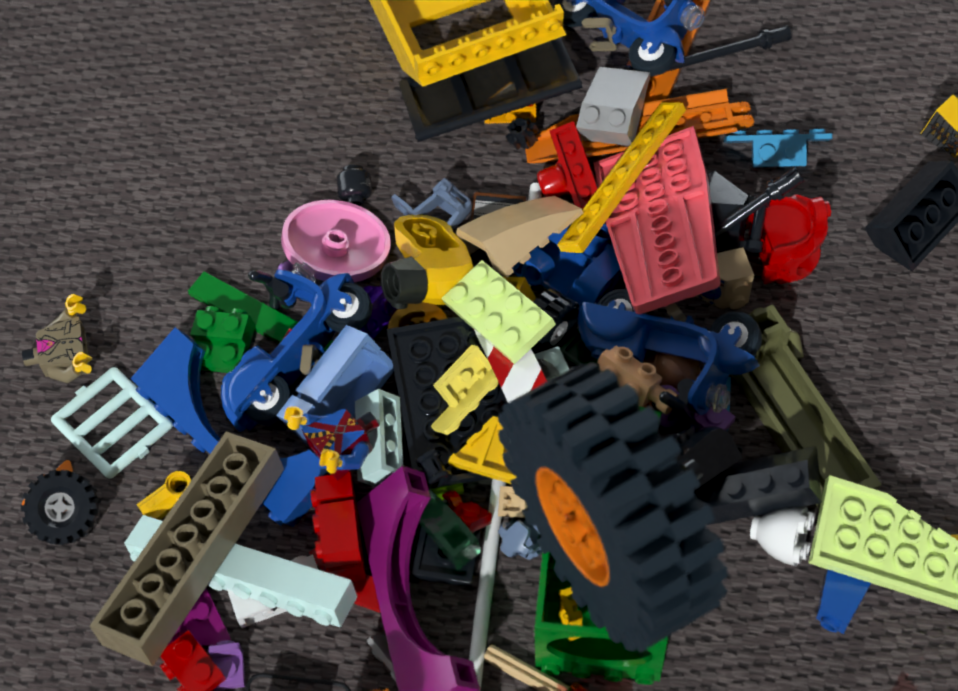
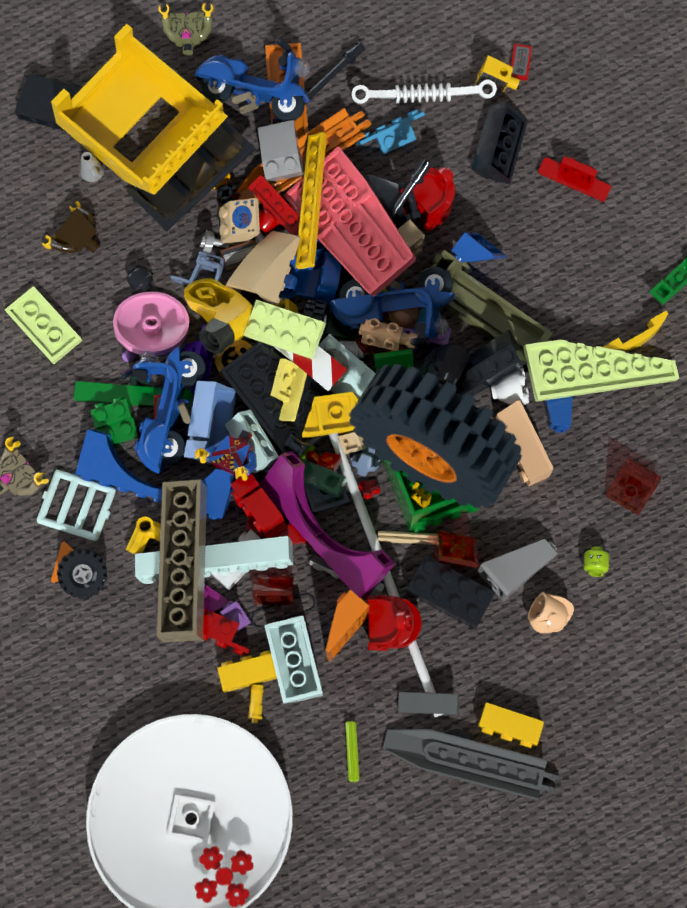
camera: 30 degrees left, 15 degrees up
(205, 190) = (43, 325): none -> yellowish green plate
(297, 654) = (273, 590): none -> clear red slope
(306, 100) = (75, 233): none -> dark brown torso
(369, 38) = (90, 167): none -> light grey piece
(465, 173) = (209, 240): none -> light grey piece
(508, 579) = (369, 488): none -> red piece
(516, 165) = (239, 221): none -> tan slope
(764, 619) = (534, 462): none -> light nougat slope
(818, 324) = (476, 248): none -> blue slope
(879, 126) = (426, 92): none -> white piece

